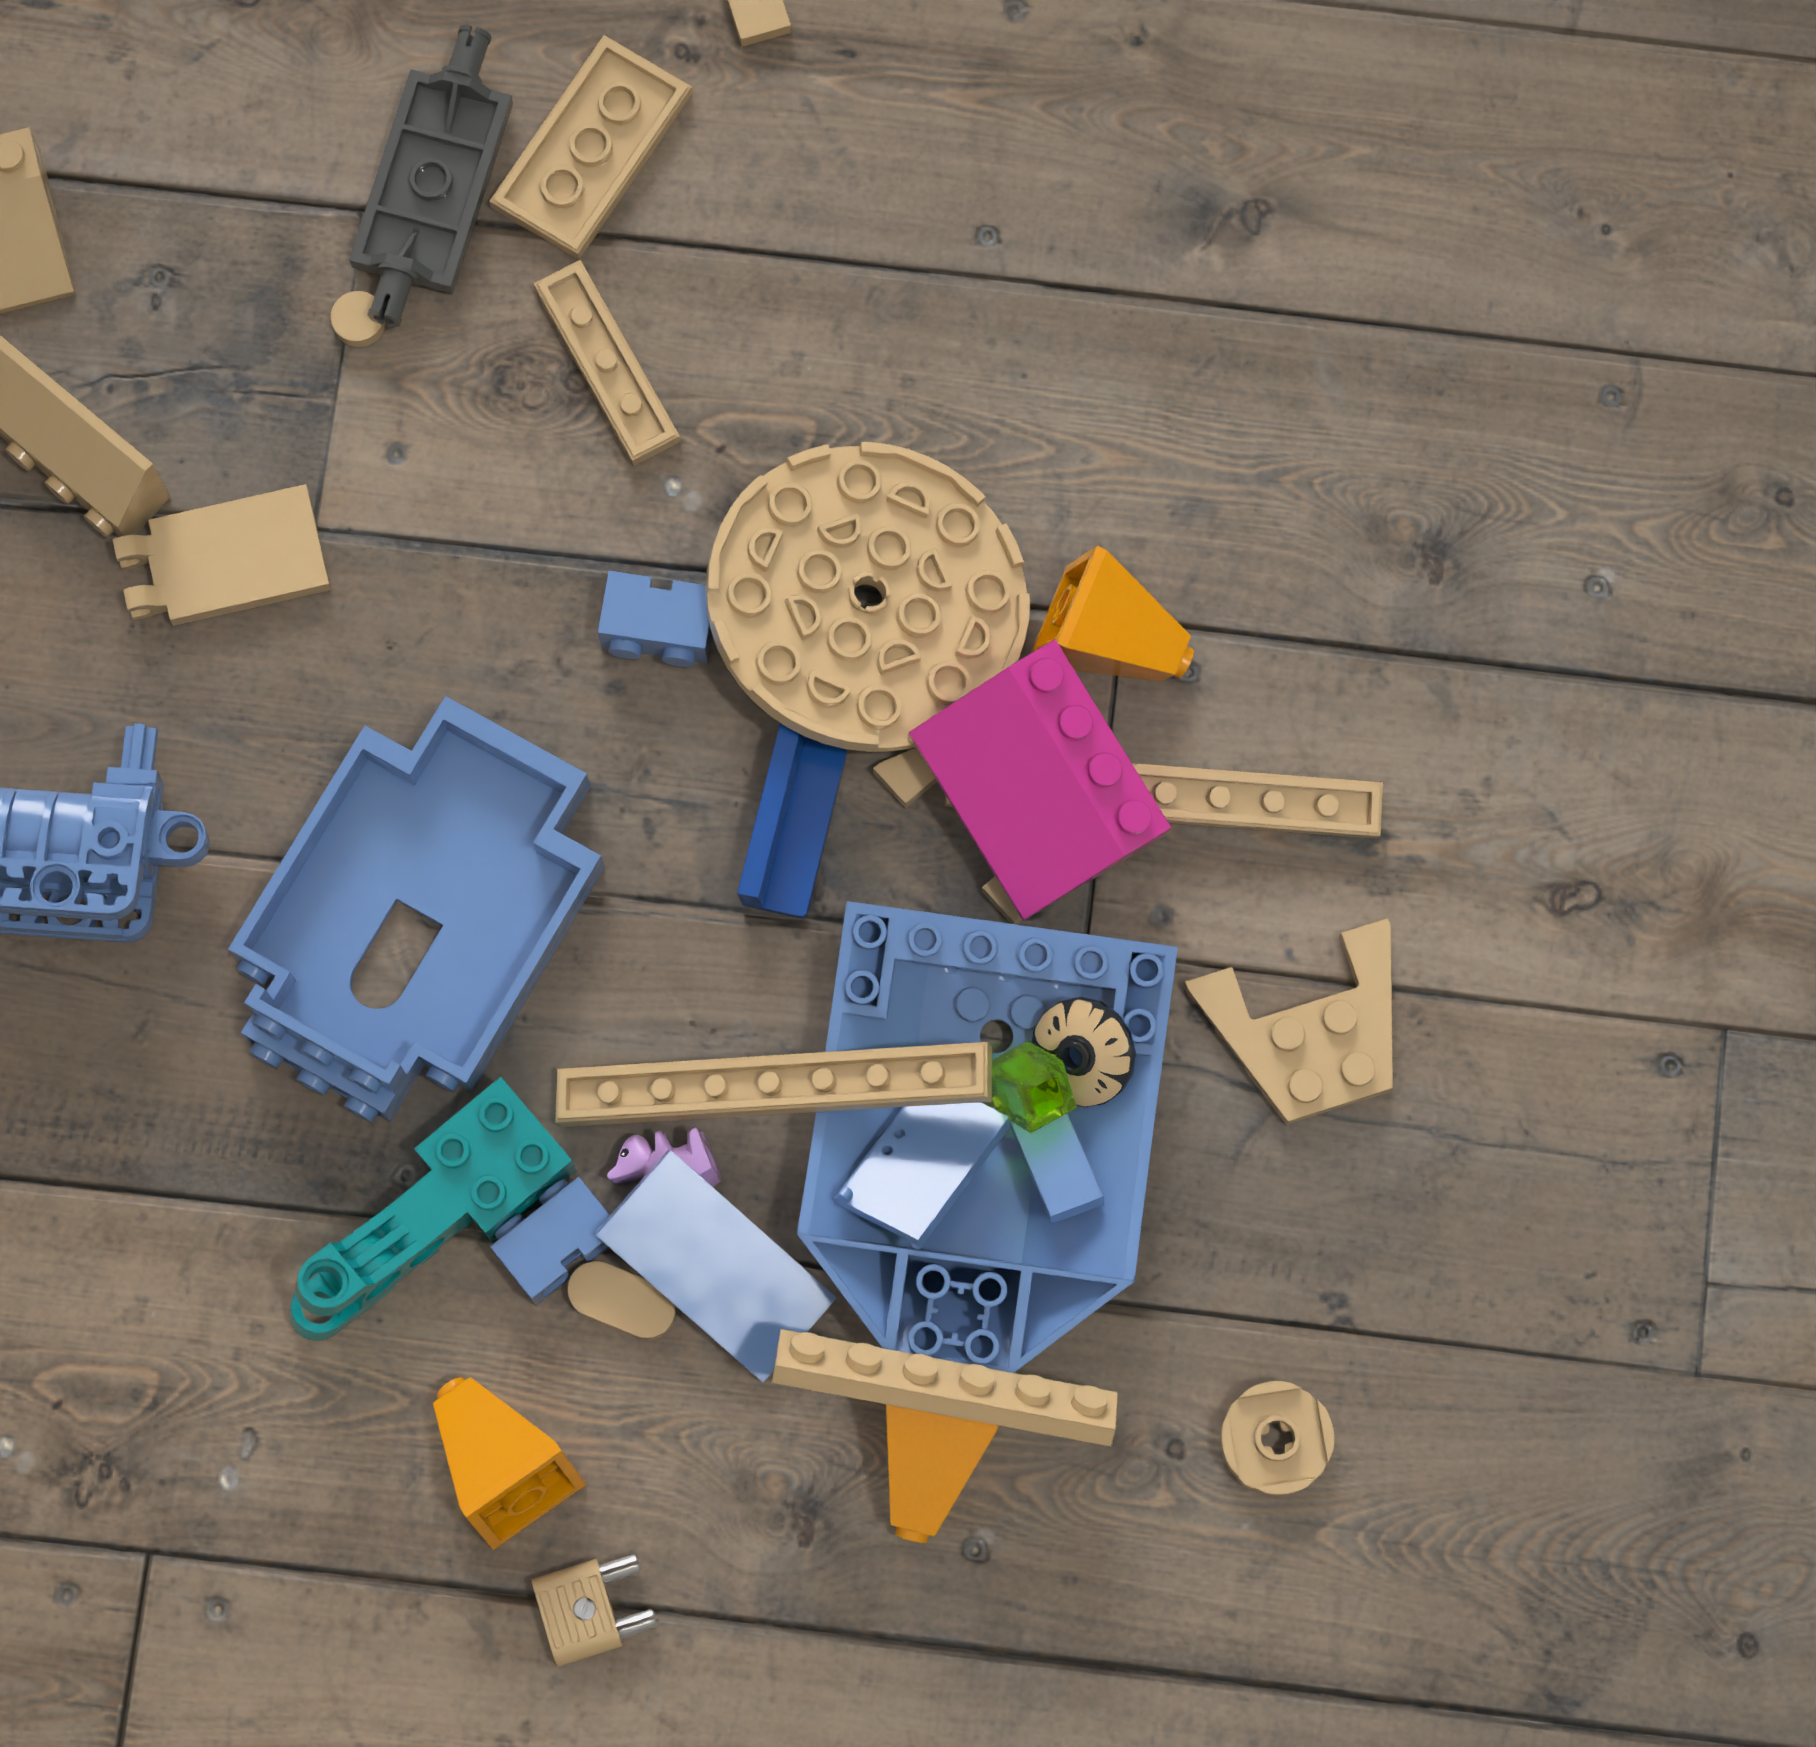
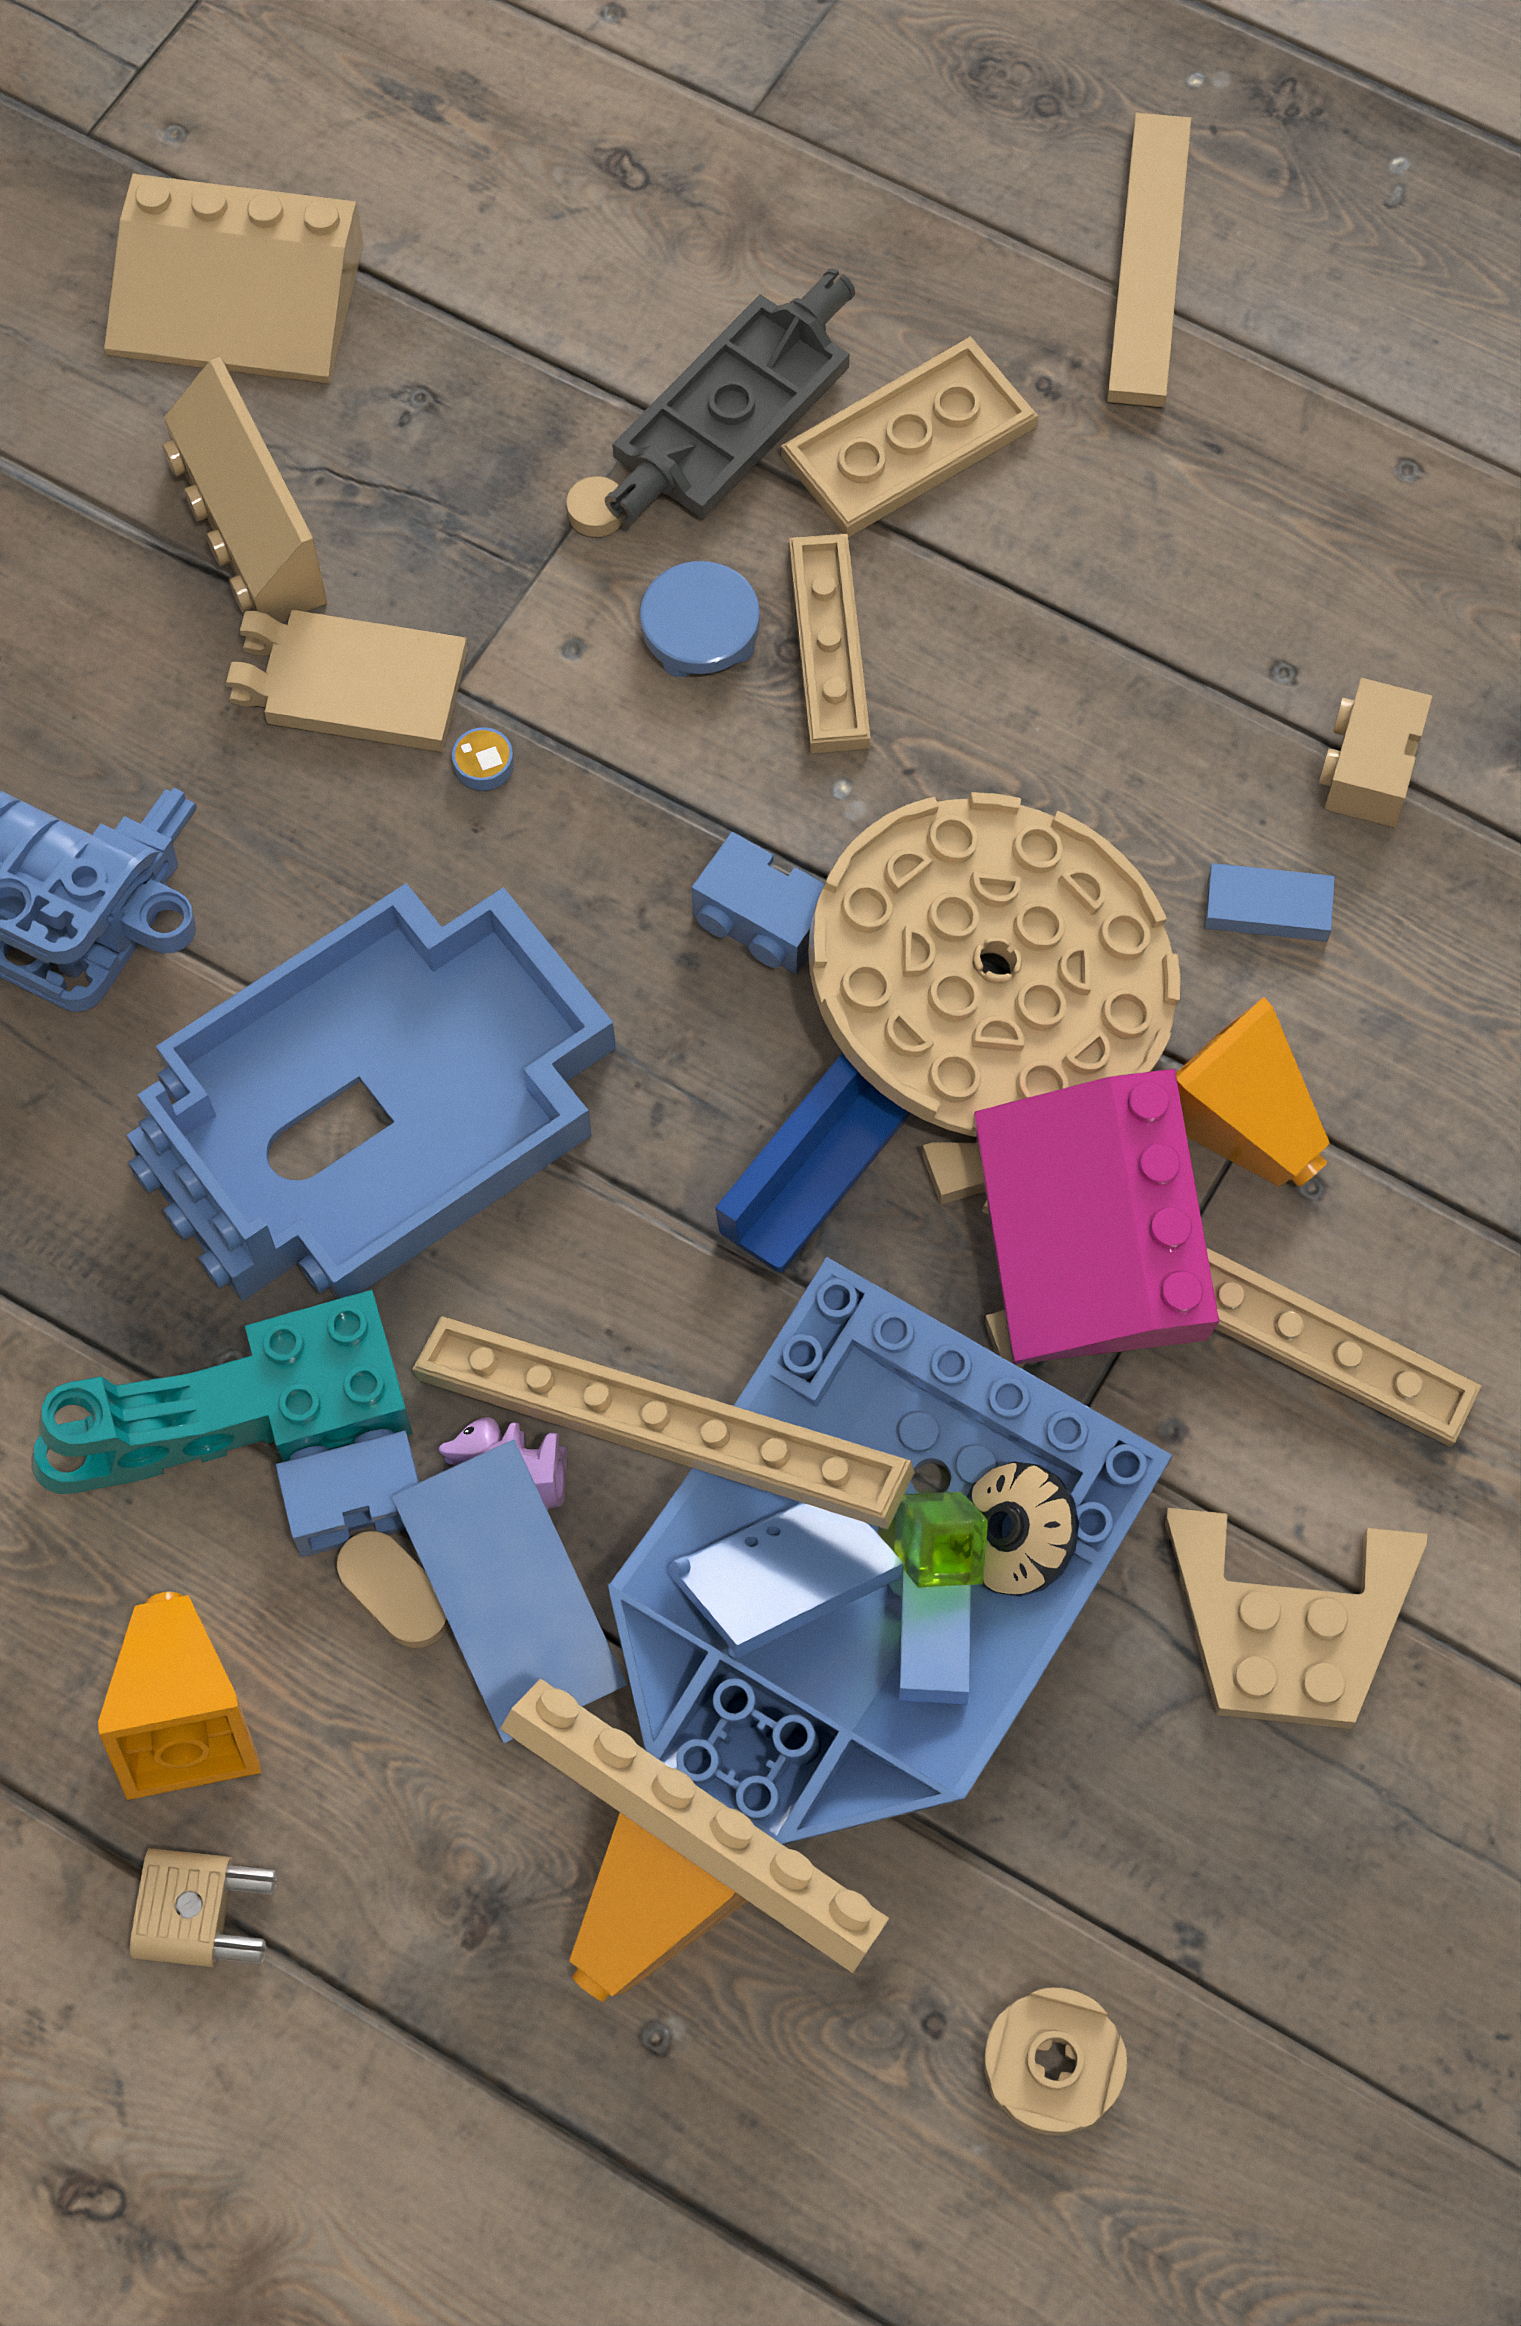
camera: 25 degrees right, 10 degrees down
(369, 584) = (483, 759): none -> tile
(492, 386) = (700, 618): none -> medium blue tile
(1058, 445) = (1269, 902): none -> medium blue tile
(1092, 298) = (1377, 751): none -> tan brick

